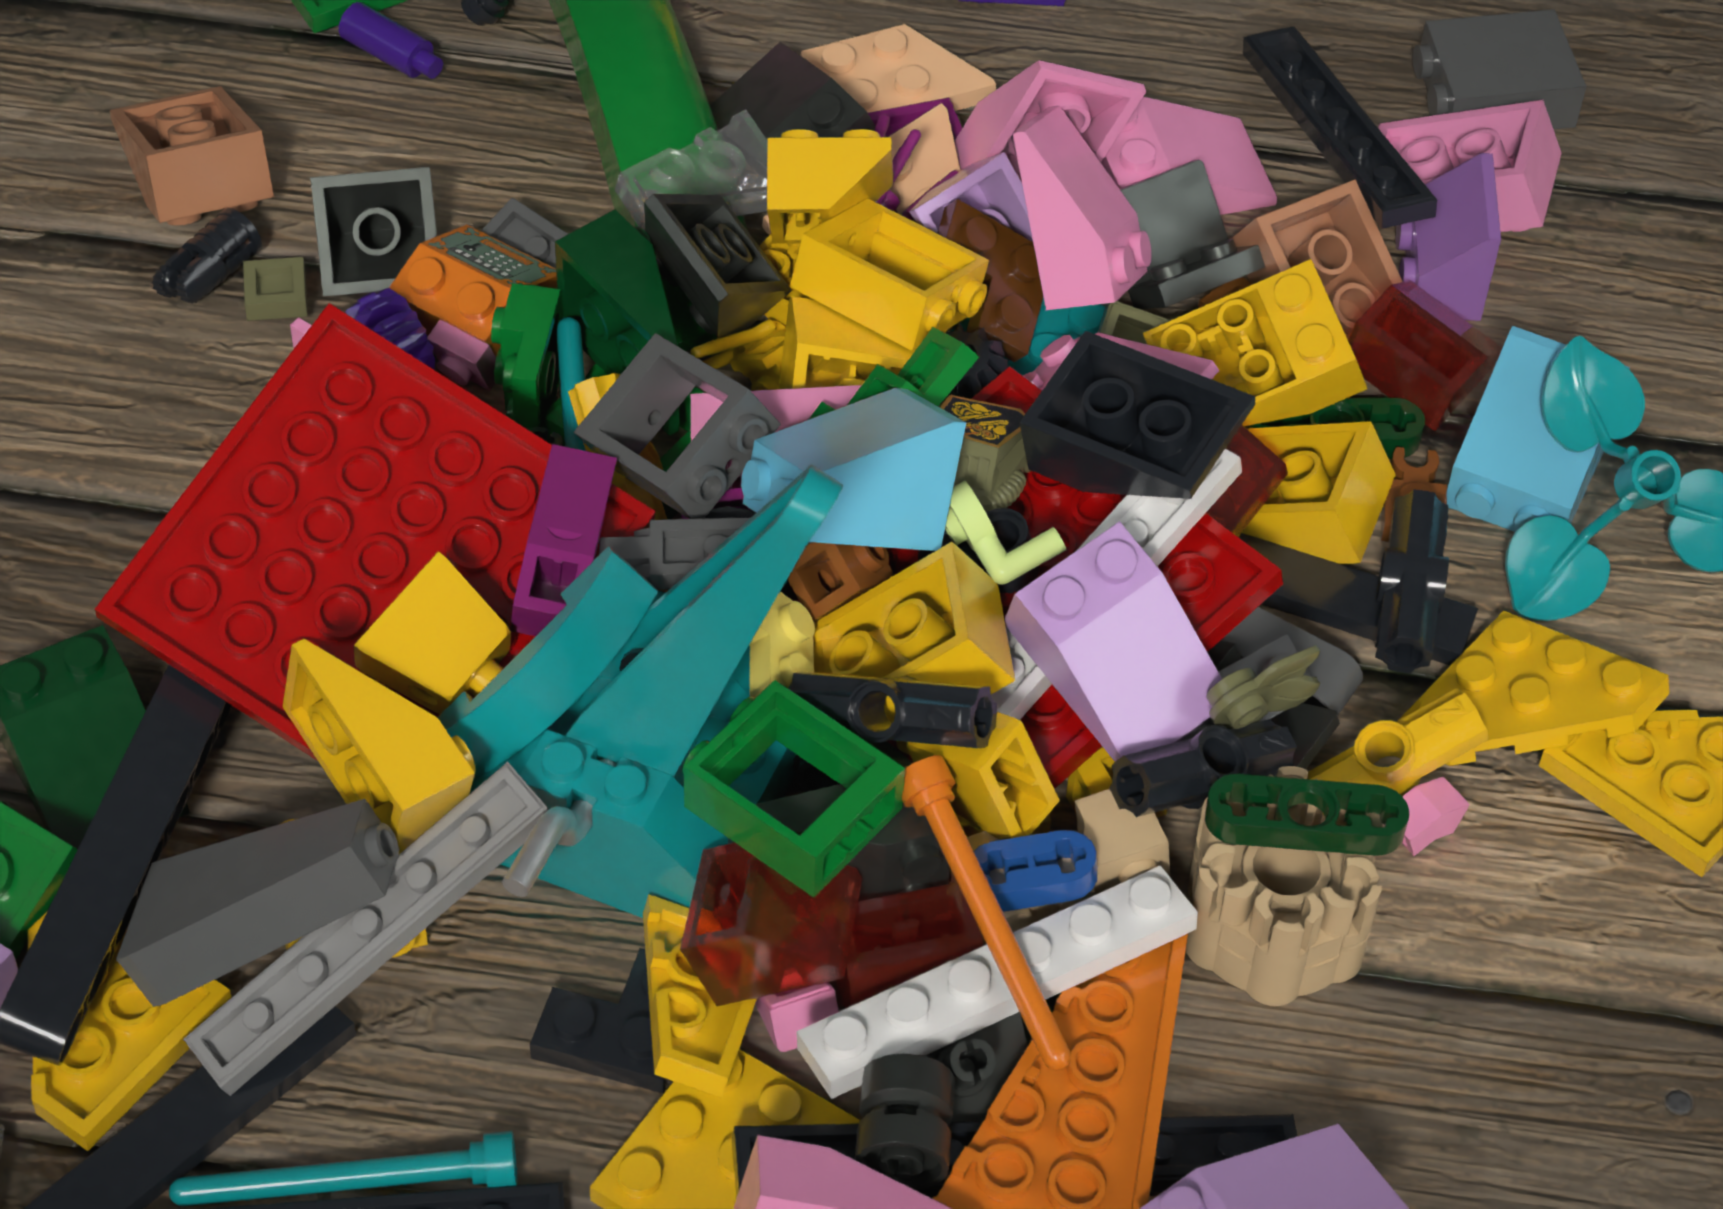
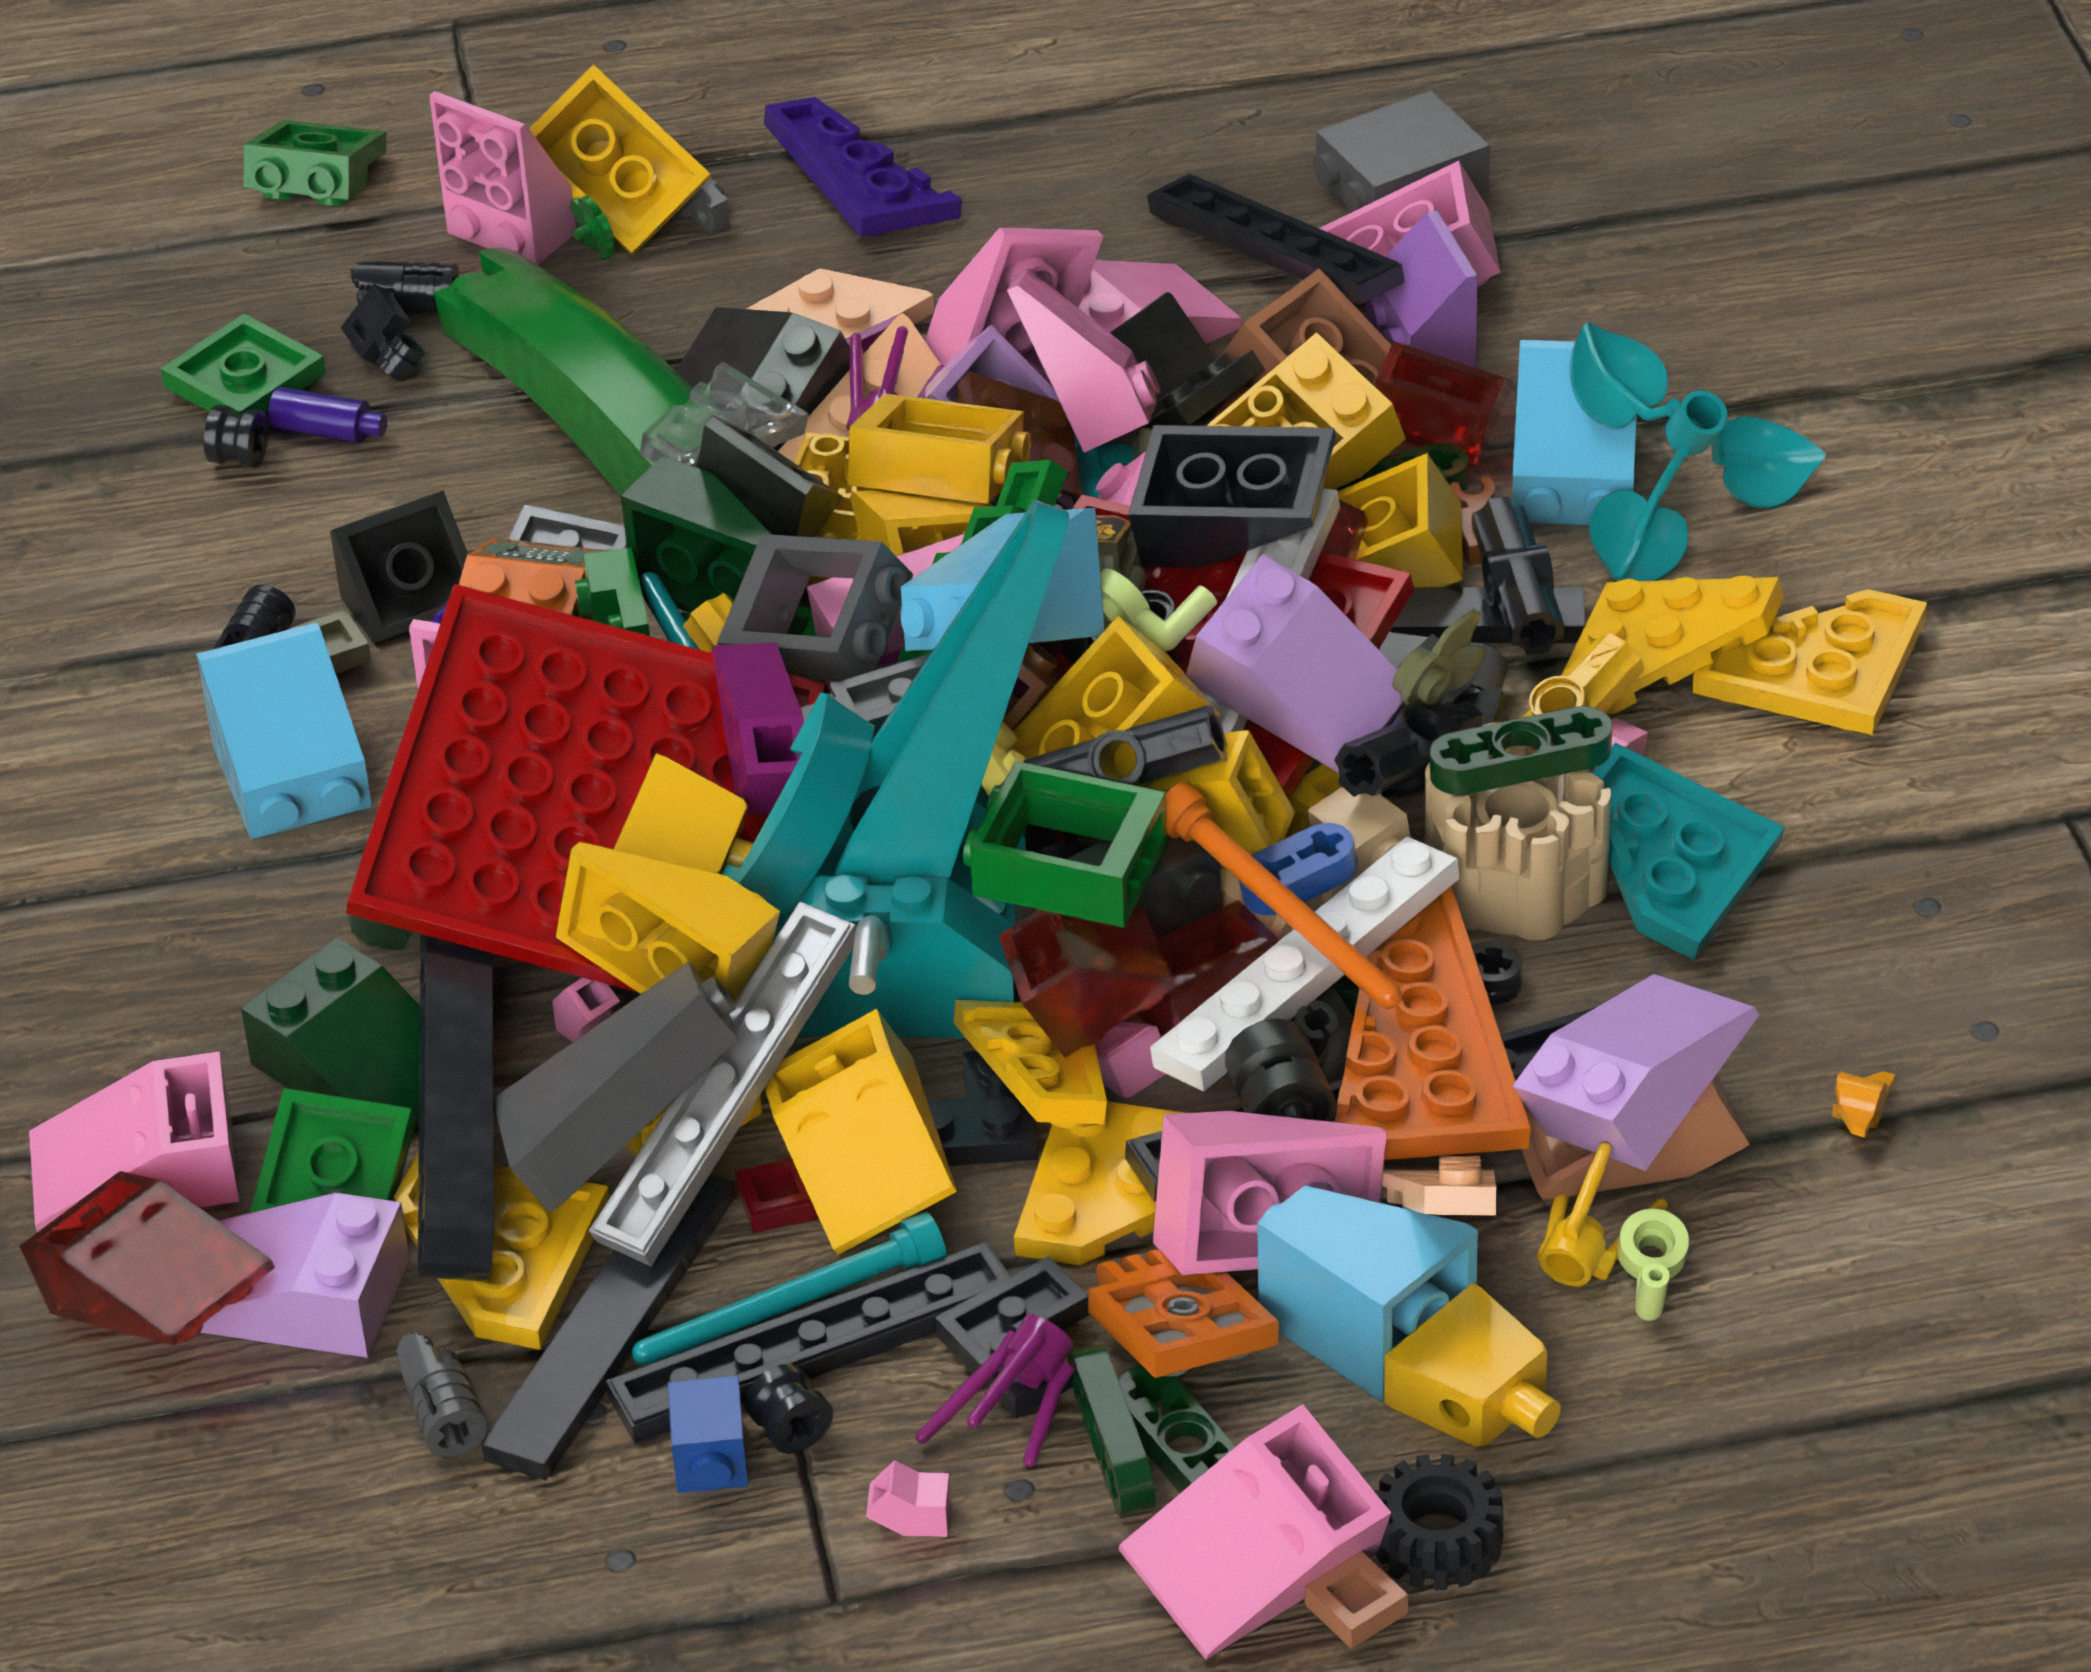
camera: 15 degrees left, 10 degrees down
(172, 372) = (283, 731): none -> medium azure slope
(194, 155) = (188, 556): nougat slope -> none
(298, 40) = (236, 436): none -> black wheel
(299, 766) = (582, 1007): none -> bright pink piece
(392, 1048) = (774, 1196): none -> dark red tile
(486, 1019) = (860, 1131): none -> yellow slope
(822, 177) = (836, 383): yellow slope -> none
(1205, 1053) = (1500, 958): none -> black bush
(1442, 955) = (1679, 850): none -> teal plate

